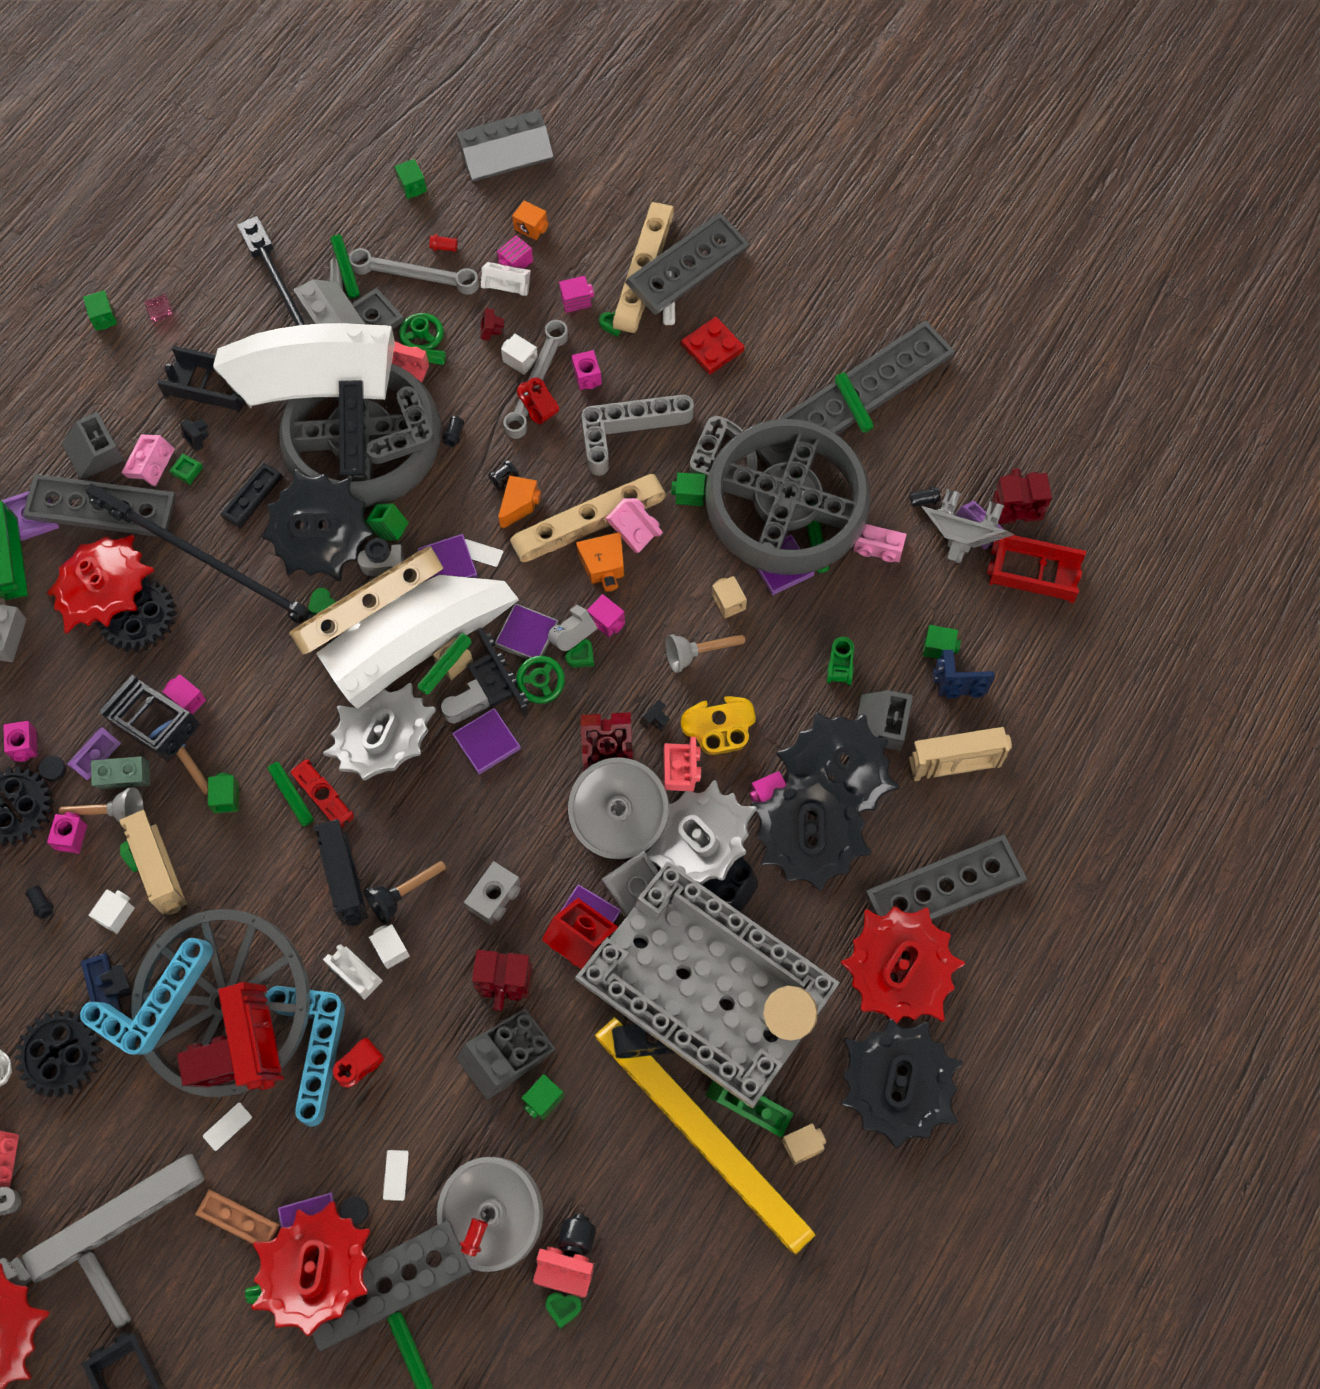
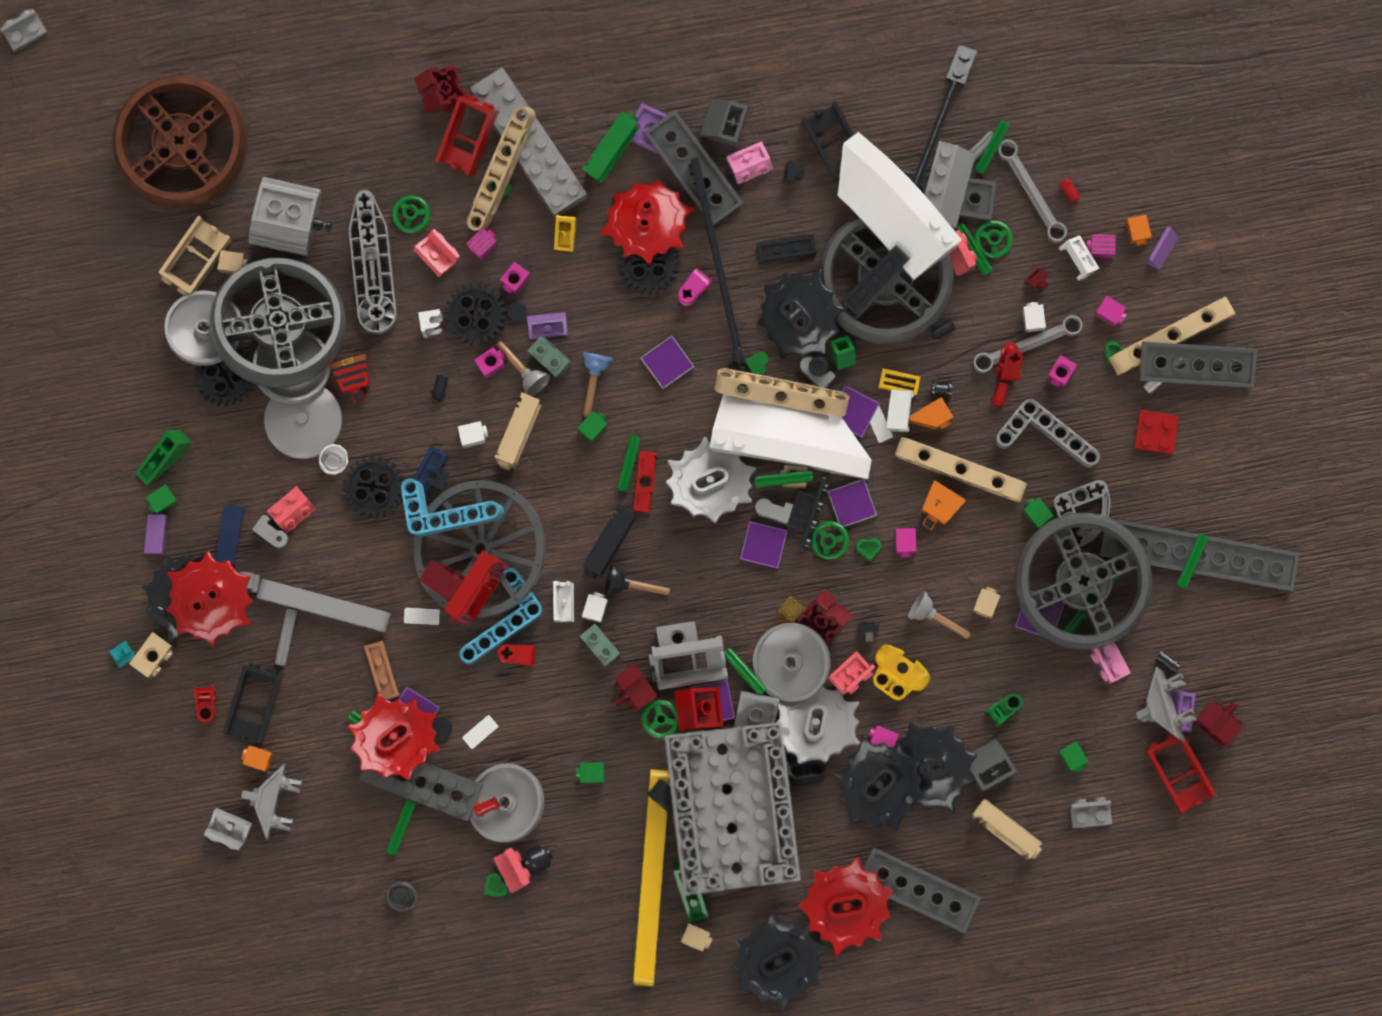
camera: 50 degrees right, 15 degrees up
(30, 660) = (565, 233): none -> yellow slope
(100, 310) = (818, 26): green brick -> none
(126, 854) = (509, 410): green tile -> none
(158, 308) = (855, 57): clear pink tile -> none
(172, 737) = (588, 315): black door -> none
(184, 694) = (627, 342): dark pink brick -> none
(186, 469) = (766, 191): green tile -> none
(199, 597) = (696, 285): none -> dark pink piece
(238, 678) = (667, 362): none -> dark purple tile
(410, 178) = (1096, 122): green brick -> none
(410, 435) = (906, 316): dark grey beam -> none
(428, 973) = (600, 645): none -> sand green brick
(463, 507) = (899, 374): none -> yellow tile
(487, 520) = (899, 410): none -> white hinge
(504, 1053) = (596, 729): dark grey slope -> none
(505, 145) = (1180, 158): slope -> none
(550, 879) = (715, 661): none -> light grey door
(555, 990) = (650, 729): none -> green piece
(558, 438) = (999, 395): none -> red pin
(563, 217) = (1163, 248): none -> medium lavender slope
(569, 766) = (791, 610): none -> clear yellow brick
(572, 630) = (877, 530): light grey leg -> none
(586, 861) = (745, 672): none -> green axle
(634, 523) = (979, 502): bright pink bracket -> none
(790, 1013) = (755, 869): tan tile -> none
(960, 683) = (1051, 777): dark blue bracket -> none
(1009, 672) = (1091, 813): none -> light grey bracket

